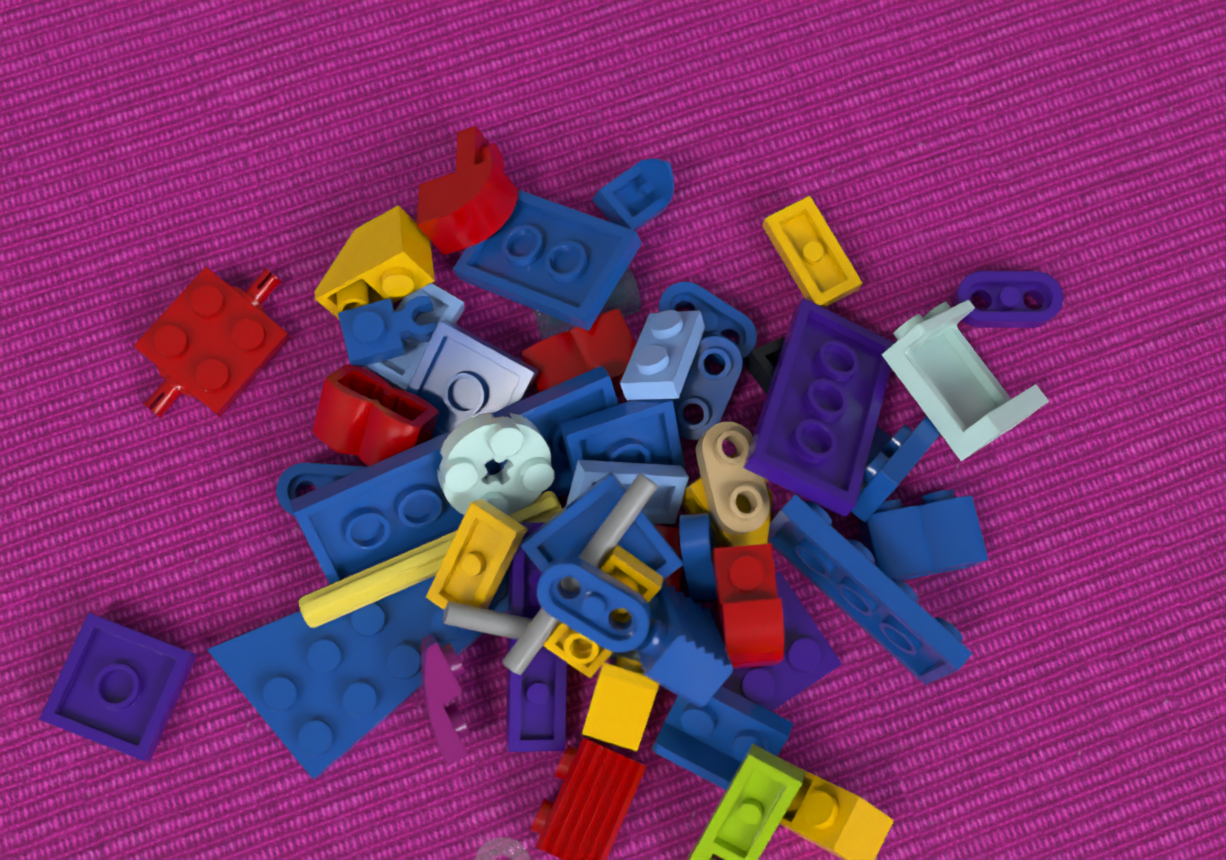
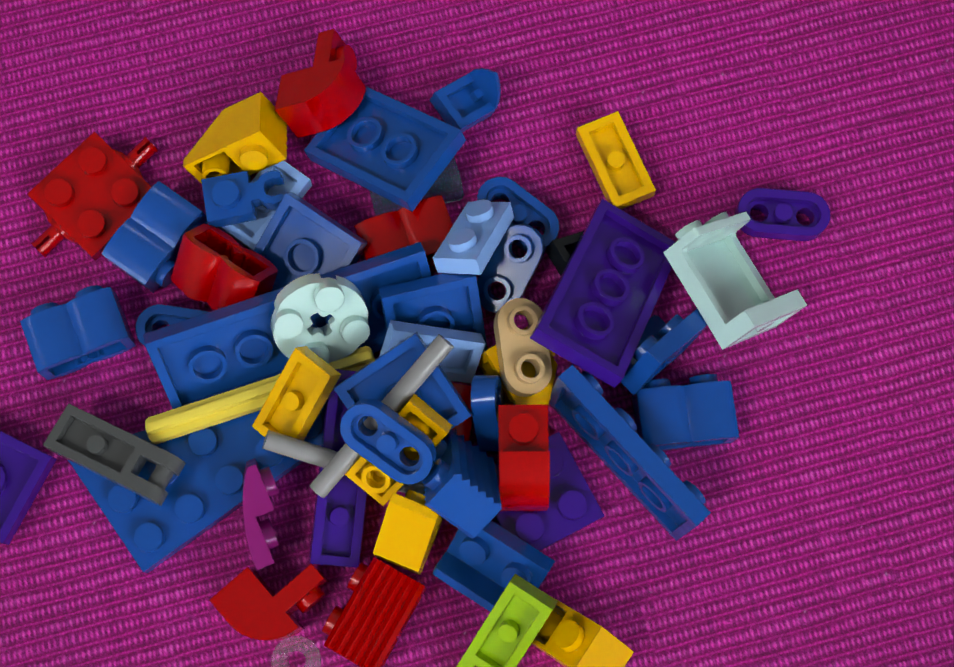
camera: 10 degrees right, 0 degrees up
(207, 504) = (77, 332): none -> blue brick
(265, 643) = (113, 453): none -> dark grey plate
(287, 384) = (152, 236): none -> blue brick
(453, 814) = (259, 612): none -> red brick

